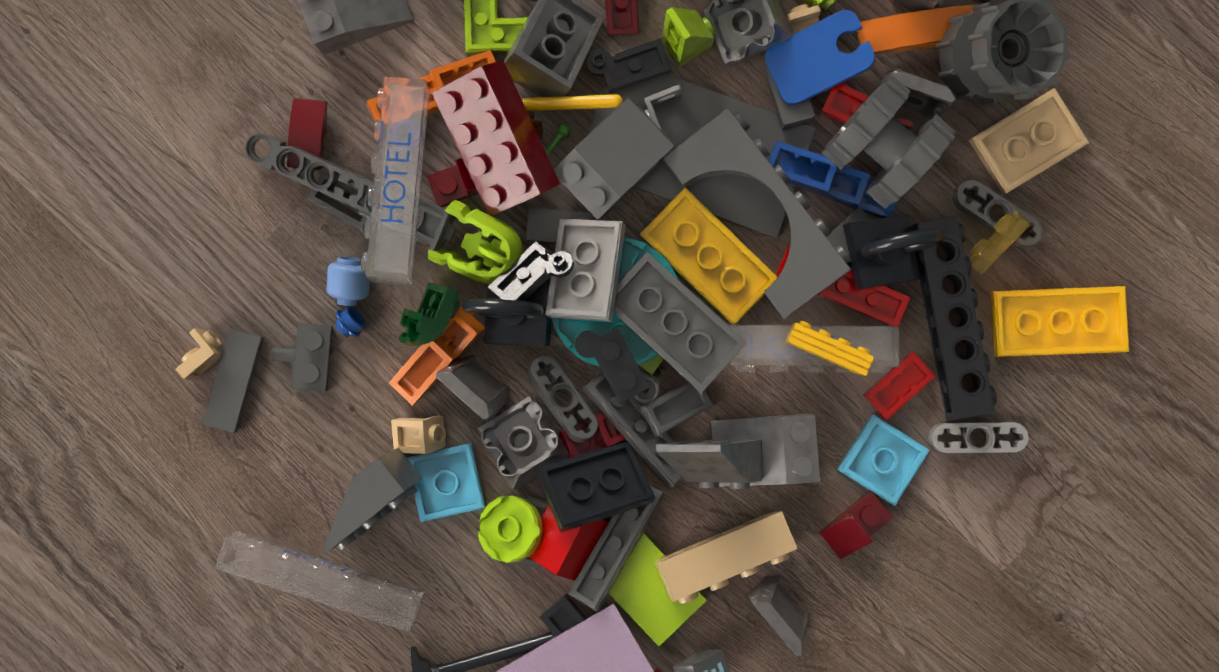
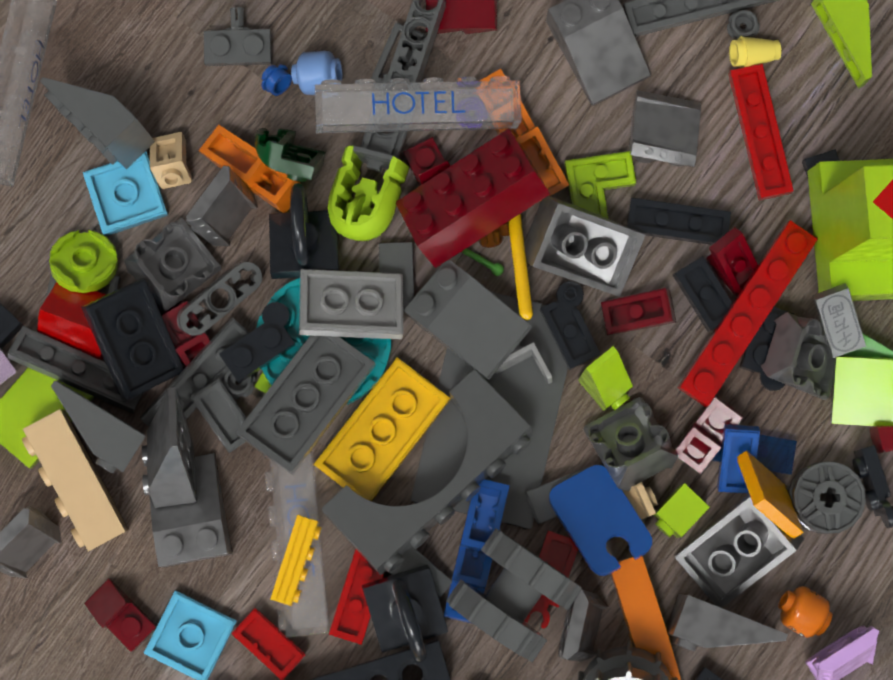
camera: 80 degrees right, 5 degrees down
(530, 273) = (340, 248): hinge -> none
(687, 519) = (104, 433): none -> dark grey slope

